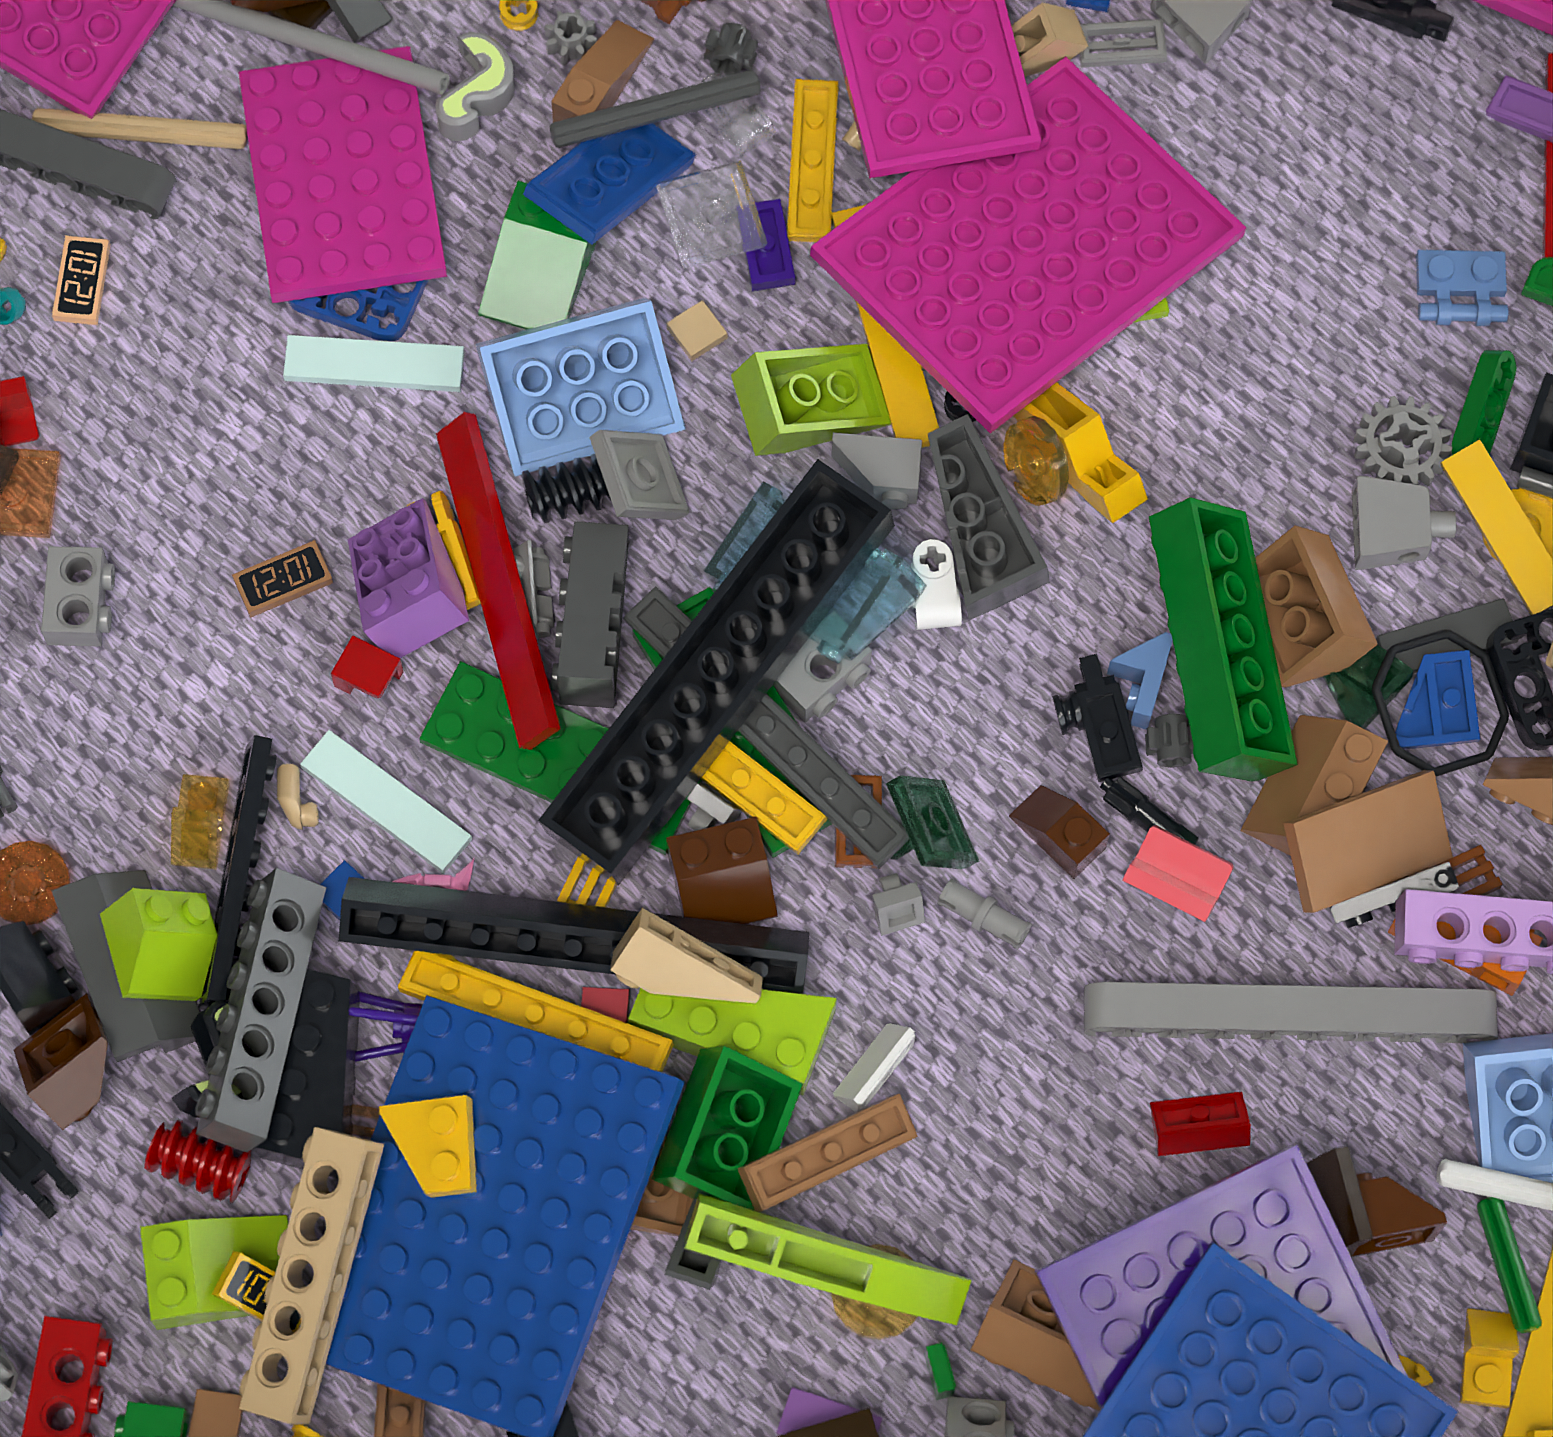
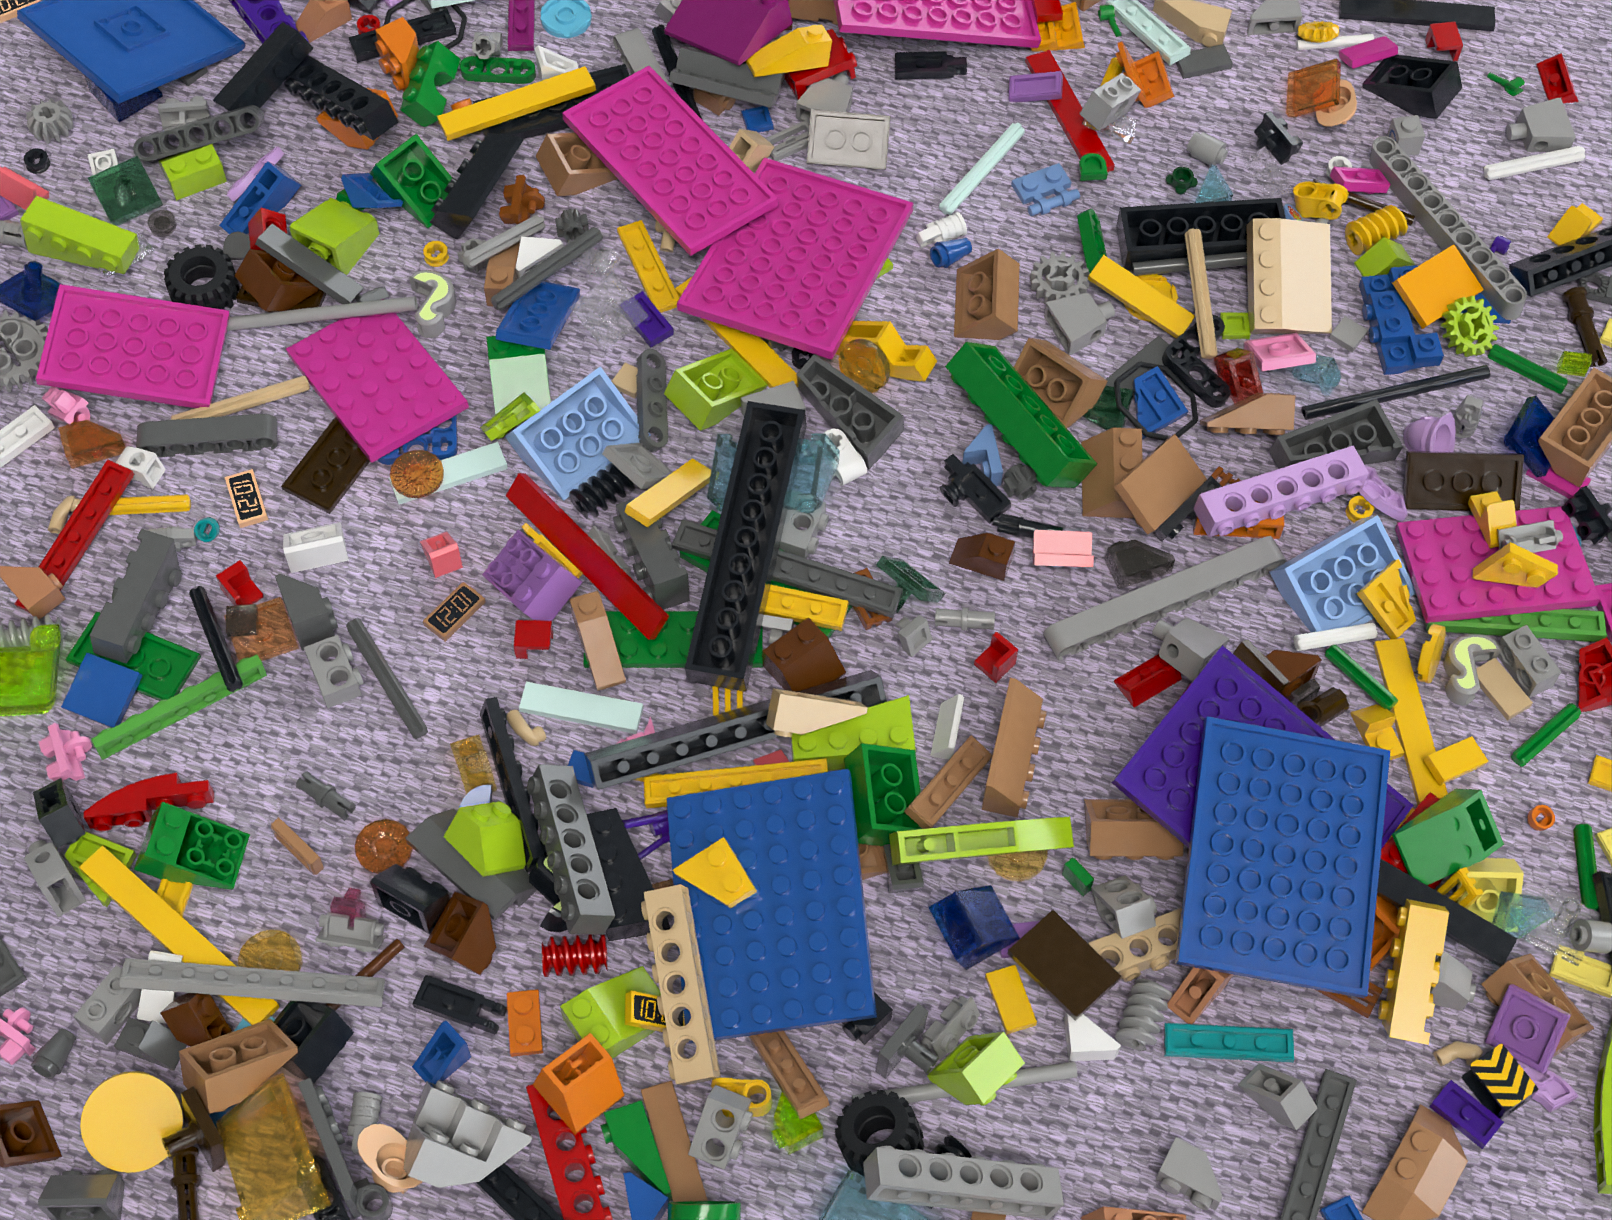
camera: 25 degrees left, 10 degrees down
(73, 497) = (308, 611): none -> dark grey slope
(92, 1221) = (524, 1023): none -> orange plate
(110, 1352) = (580, 1083): none -> orange slope
(138, 395) = (315, 547): none -> white slope
(145, 637) = (387, 678): none -> dark grey axle
(180, 874) = (478, 795): none -> tile
(211, 283) = (327, 469): none -> dark brown tile
(304, 483) = (442, 554): none -> coral slope
(326, 349) = (417, 474): none -> clear orange wheel
(395, 41) = (373, 295): none -> tile
(447, 717) = (597, 640): none -> slope
(495, 319) = (510, 416): none -> lime wing
(617, 35) = (503, 241): none -> light grey axle
(653, 73) = (534, 251): none -> white slope
(656, 537) = (669, 493): none -> yellow tile
(709, 377) = (651, 400): none -> dark grey plate
(755, 1373) = (974, 924): none -> clear blue slope
(944, 1145) = (1013, 751): none -> medium nougat slope
(996, 995) = (997, 658): none -> red panel
(1203, 81) = (848, 139): none -> tile
(1263, 327) = (950, 251): none -> blue cone
(1270, 289) = (942, 230): none -> white hinge
(1275, 941) = (1136, 562): none -> clear smoke slope
(1279, 427) = (987, 297): none -> medium nougat slope
(1280, 1106) = (1188, 645): none -> light grey torso
(1384, 210) = (981, 169): none -> light aqua axle
(1407, 1254) = (1305, 692): none -> clear smoke tile
(1420, 1288) = (1325, 706): none -> dark brown piece

